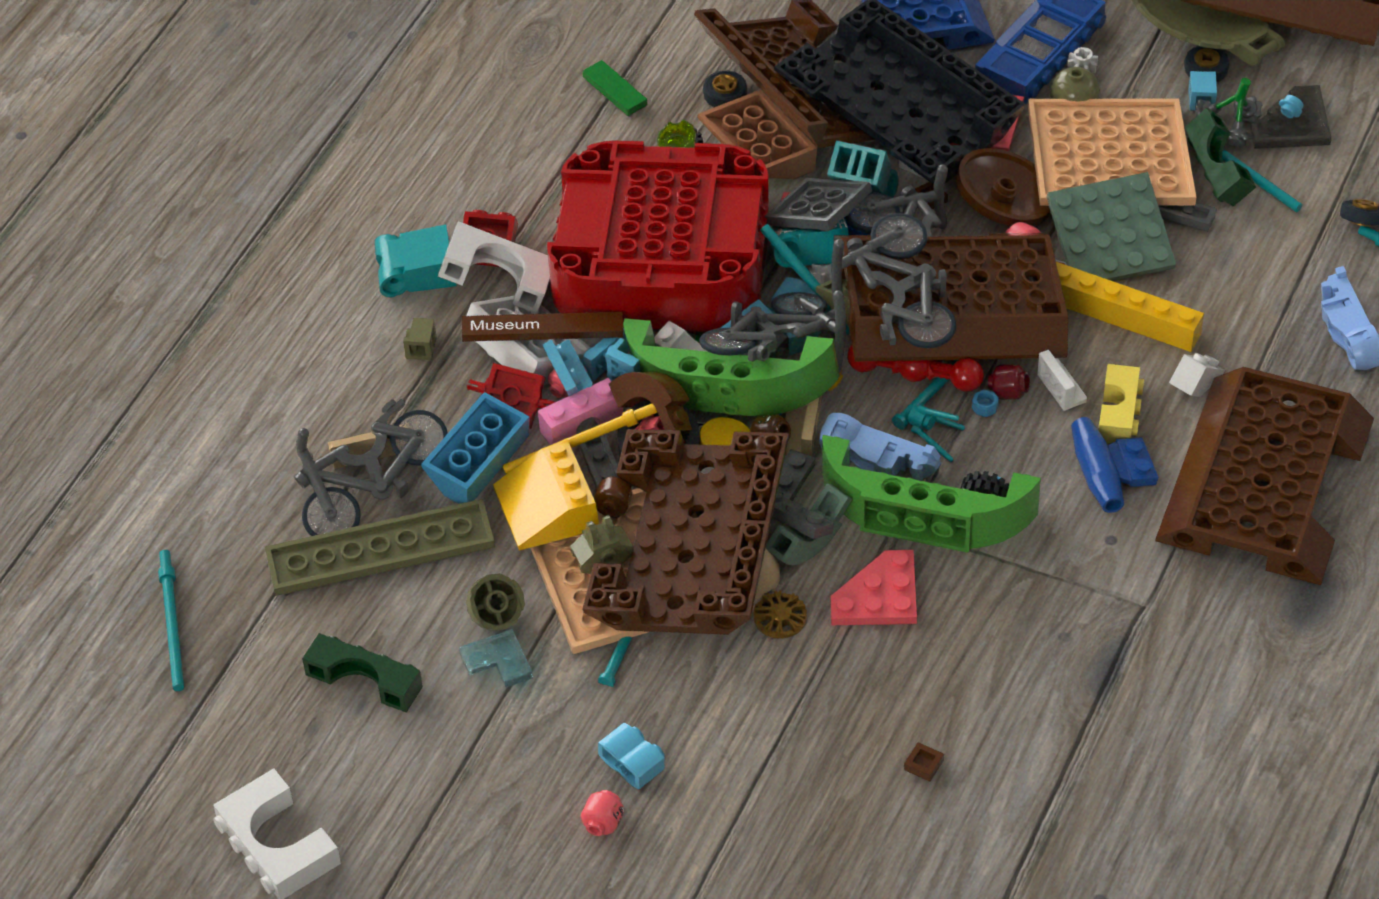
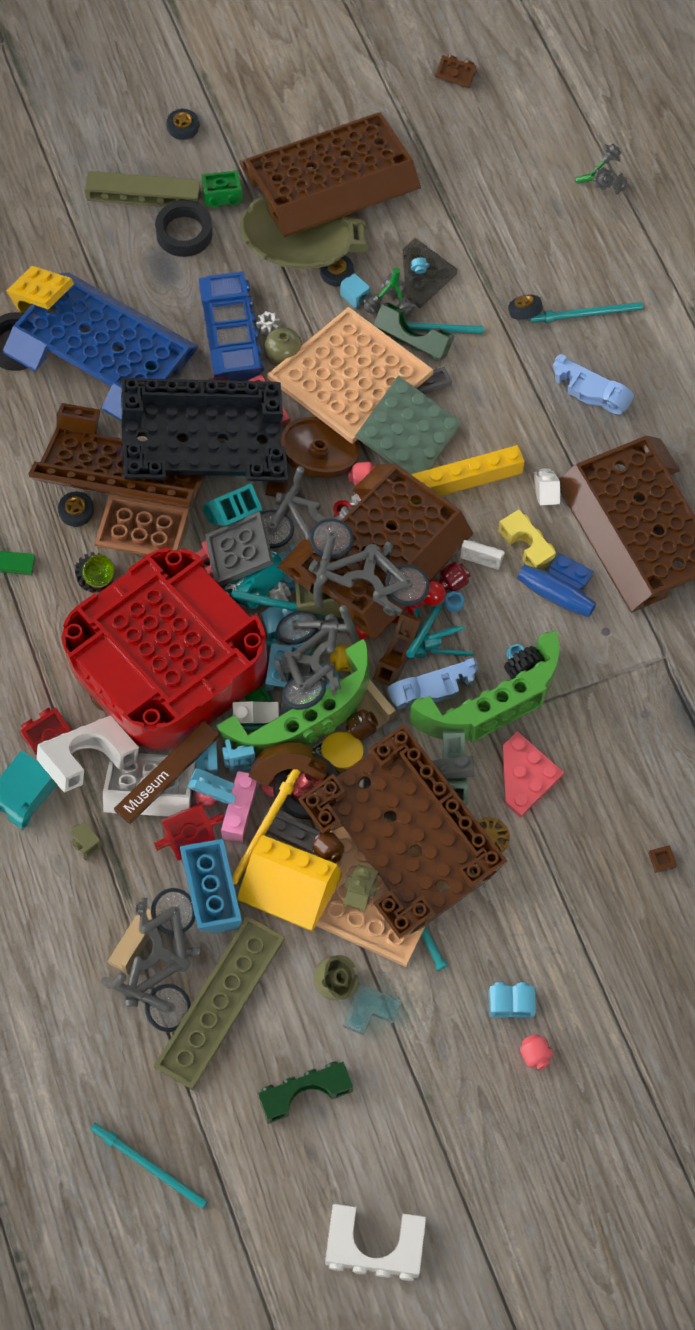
camera: 50 degrees left, 15 degrees up
(878, 402) = (395, 657): none -> reddish brown arch
(927, 398) = (423, 630): none -> teal bar

